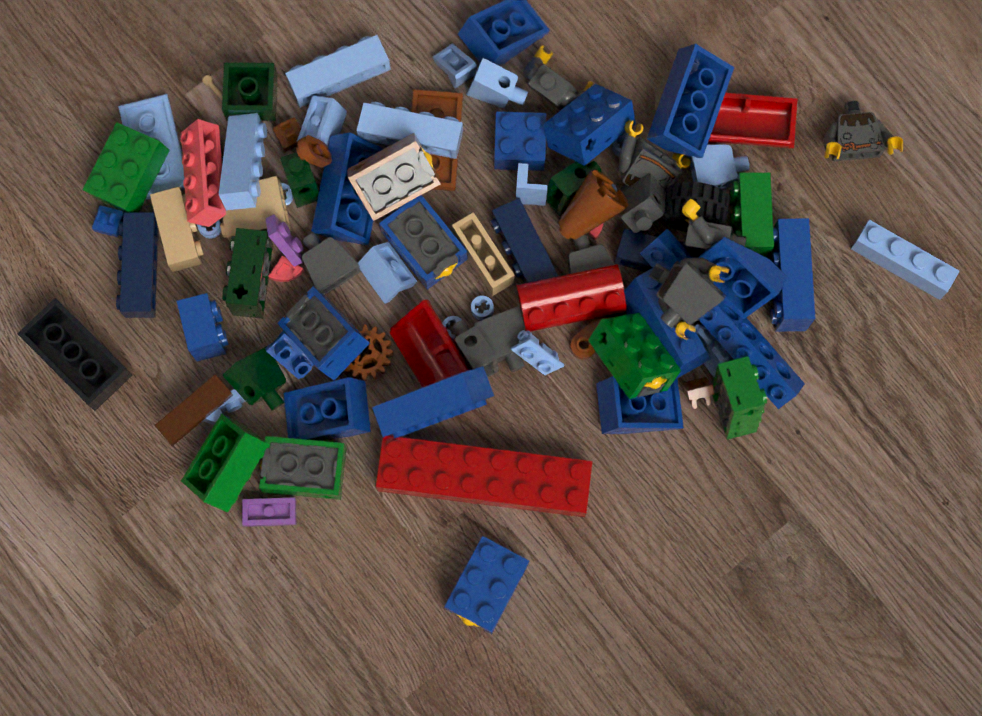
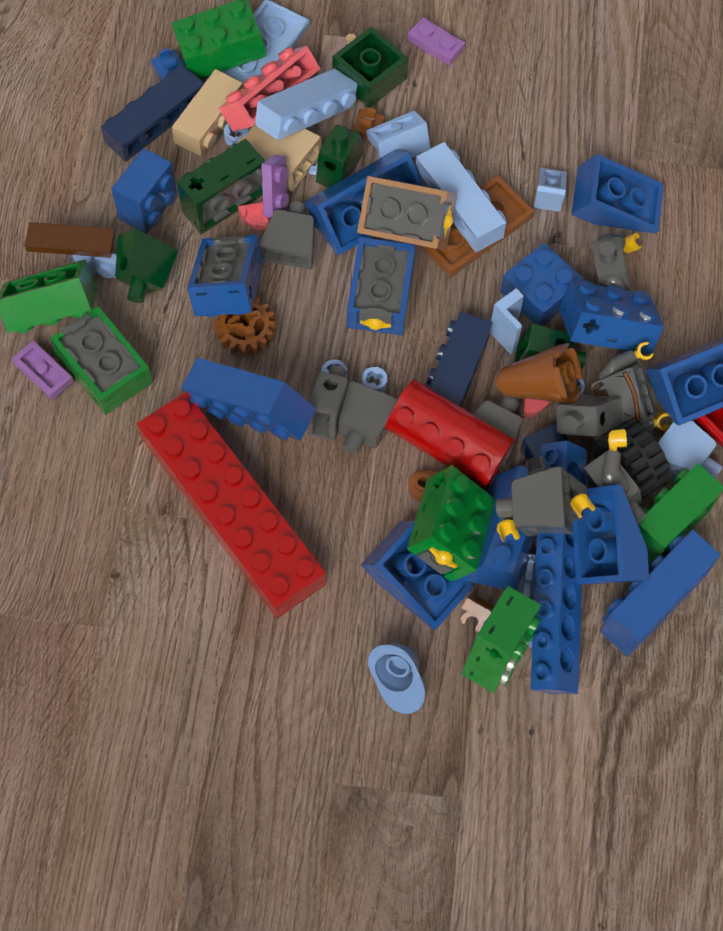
camera: 45 degrees right, 10 degrees down
(74, 354) = (36, 128): black brick -> none
(267, 27) = (436, 41): none -> medium lavender plate
(289, 355) = (182, 265): blue hips -> none
(314, 151) = (366, 140): dark orange plate -> none
(328, 410) = (170, 339): blue slope -> none
(338, 70) = (455, 112): light blue brick -> none
(386, 271) = (329, 284): light blue panel -> none
(427, 345) = (300, 356): red container -> none
(483, 254) = (416, 337): tan brick -> none
(486, 585) = (136, 587): blue piece -> none
(495, 85) = (566, 225): light blue torso -> none
(537, 354) = (377, 460): light blue hinge -> none
(695, 478) = (397, 677): none -> medium blue piece

